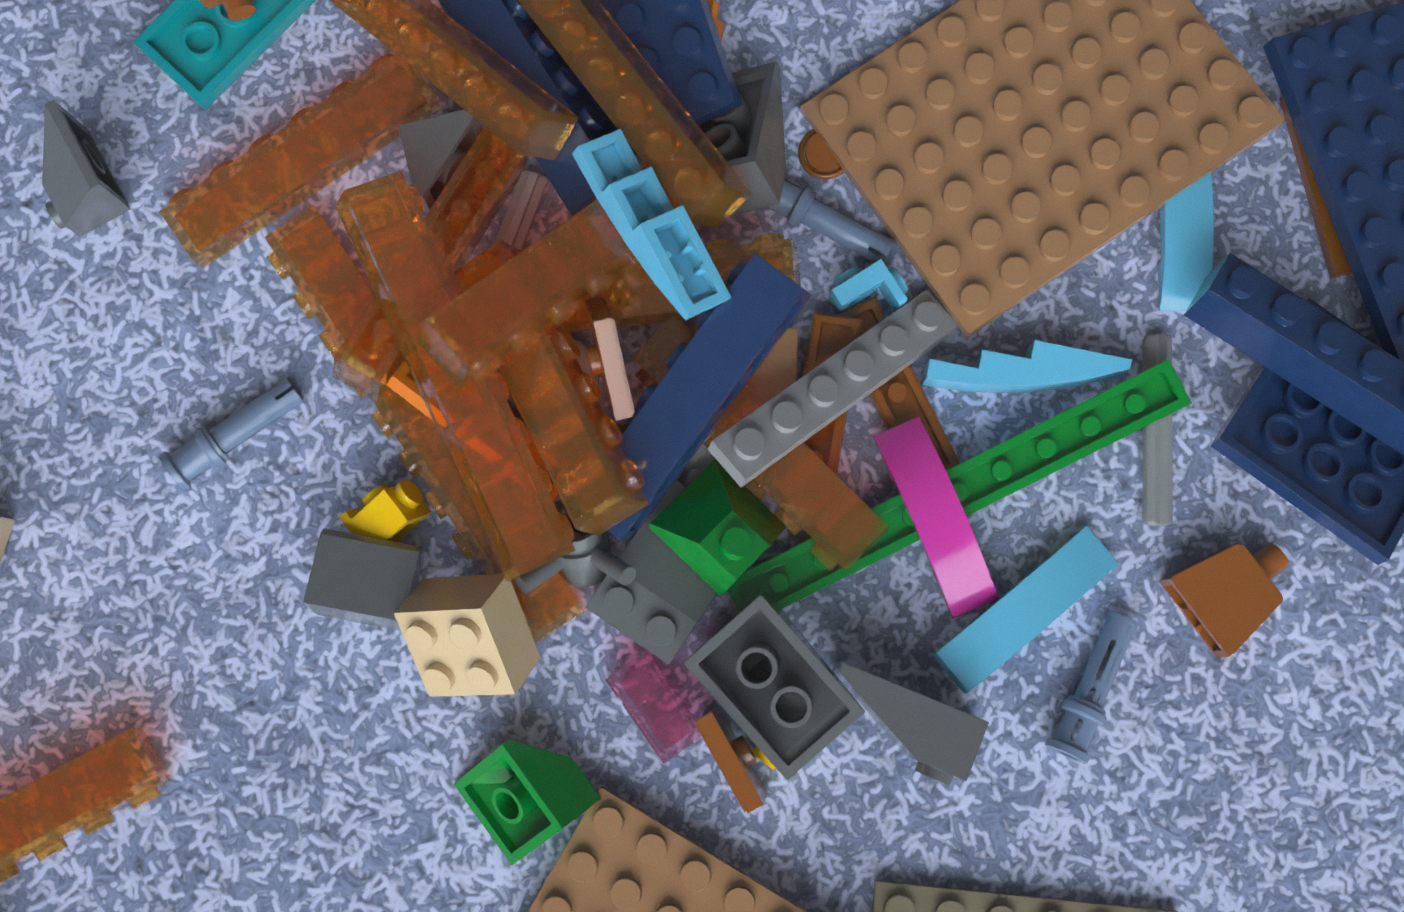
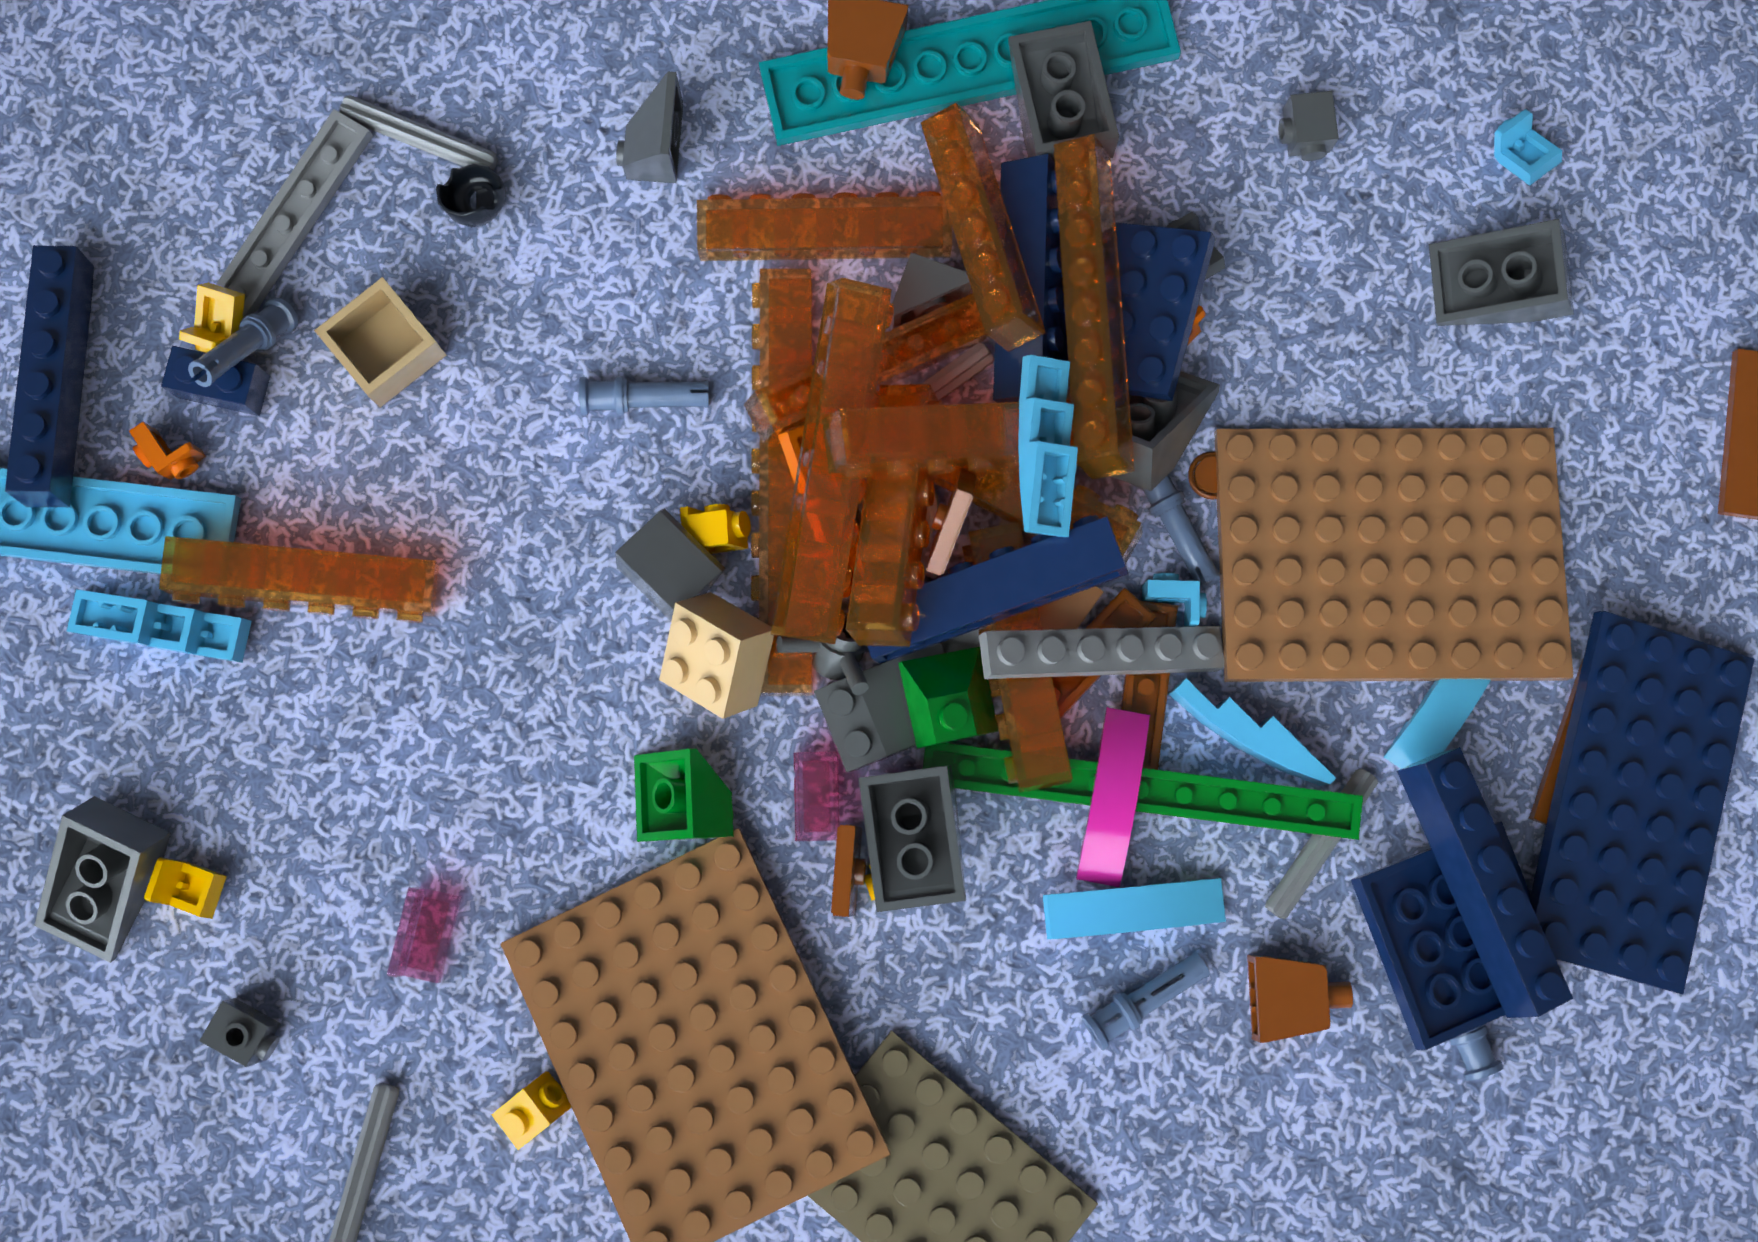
camera: 25 degrees right, 0 degrees up
(923, 728) = (999, 940): dark grey slope -> none

